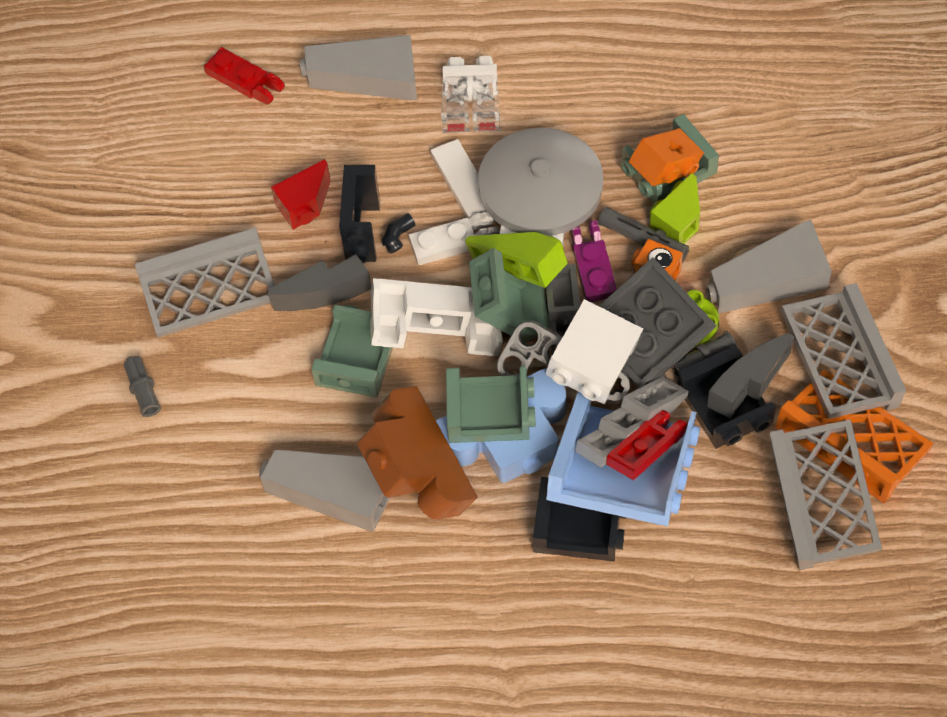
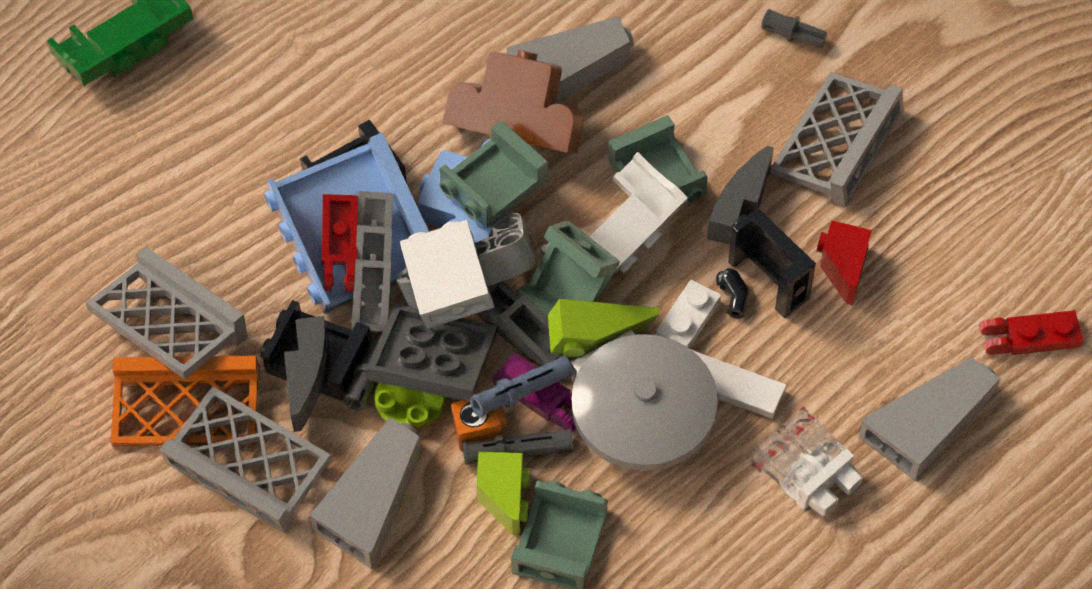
camera: 135 degrees right, 0 degrees up
(612, 250) = (508, 392): none -> sand blue pin
(666, 157) = (565, 495): orange brick -> none

